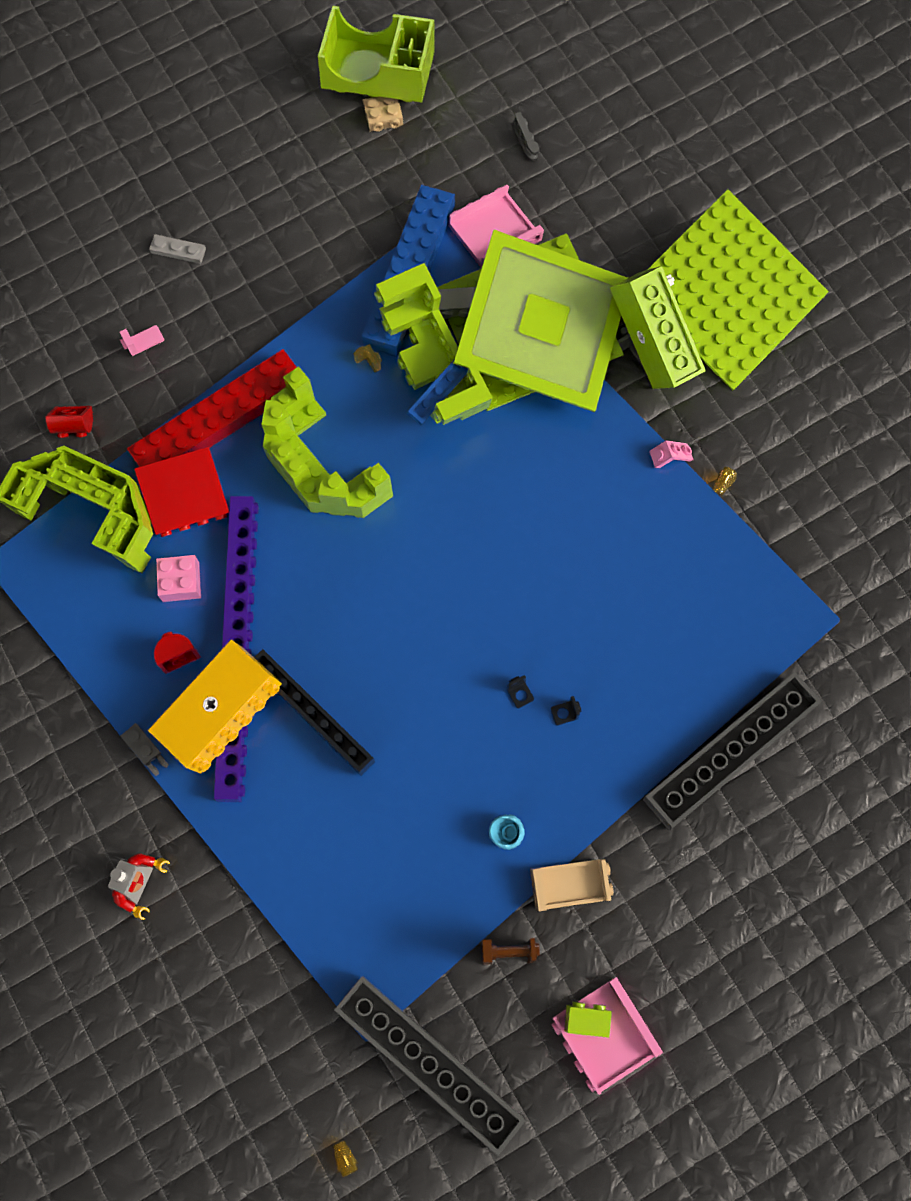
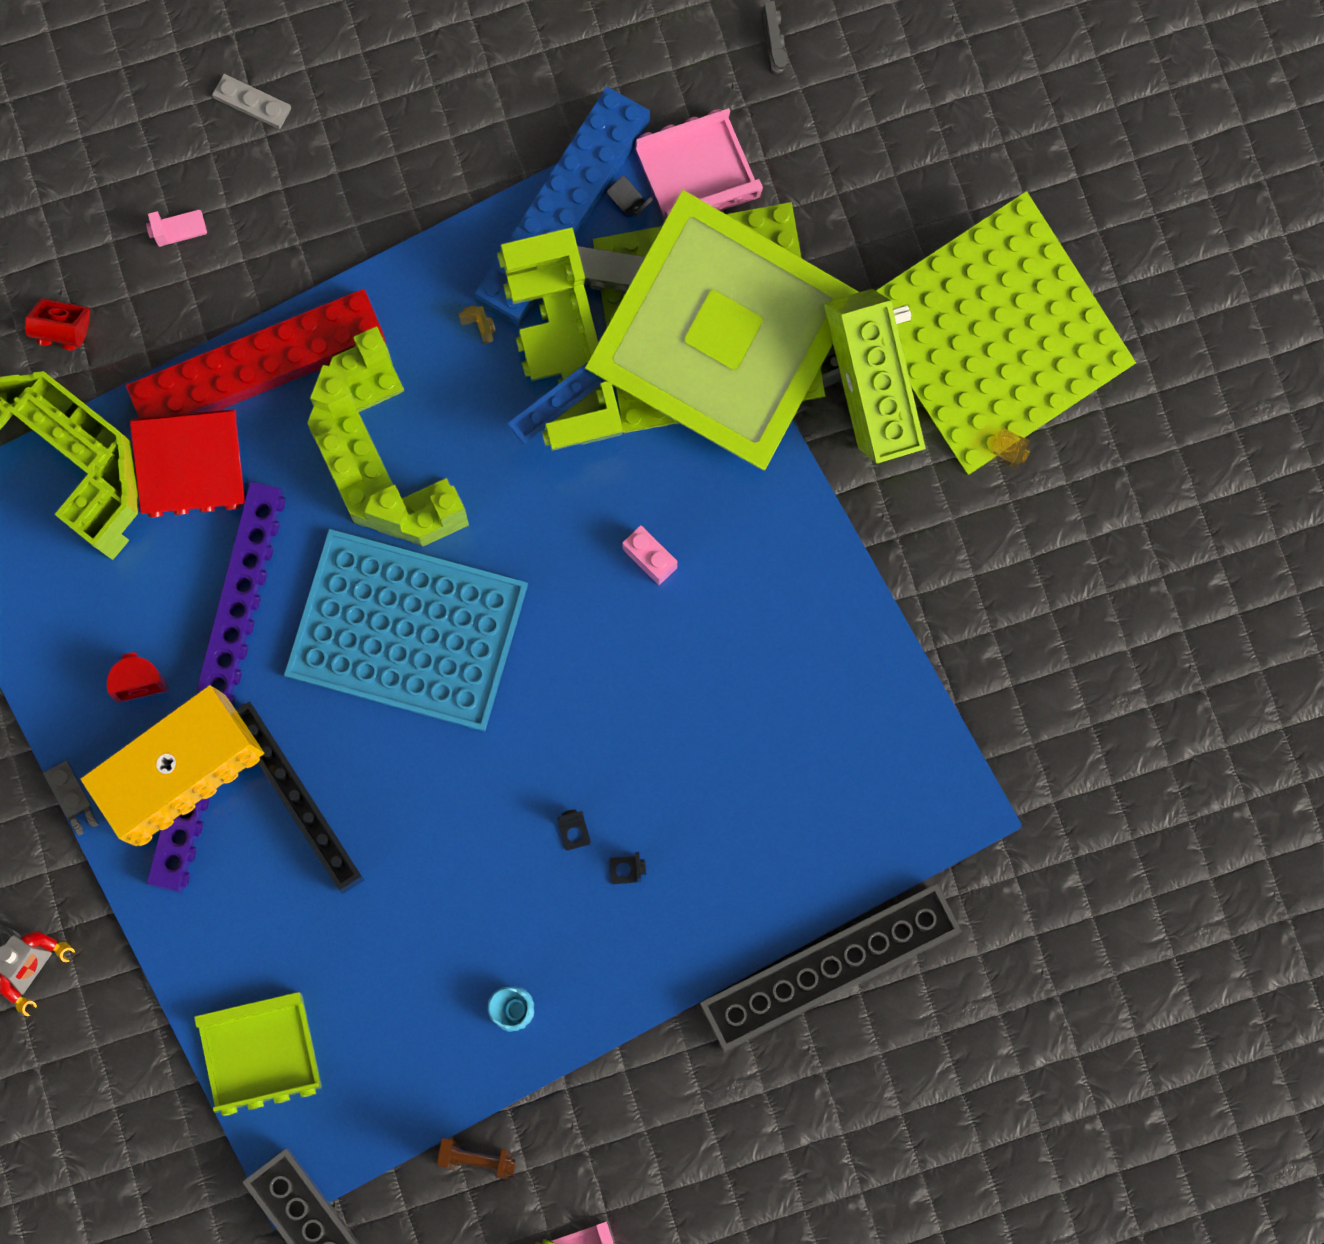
camera: 10 degrees right, 5 degrees up
(178, 578) = (159, 578): bright pink brick -> none
(324, 908) = (259, 1053): none -> lime panel
(365, 577) = (406, 630): none -> dark azure plate
(452, 255) = (627, 197): none -> black bracket
(527, 487) = (649, 555): none -> bright pink brick
(571, 884) = (578, 1093): tan panel -> none
(670, 451) = (856, 546): bright pink bracket -> none
(725, 480) = (920, 601): clear yellow cone -> none
(759, 363) = (1011, 447): none -> clear yellow bracket

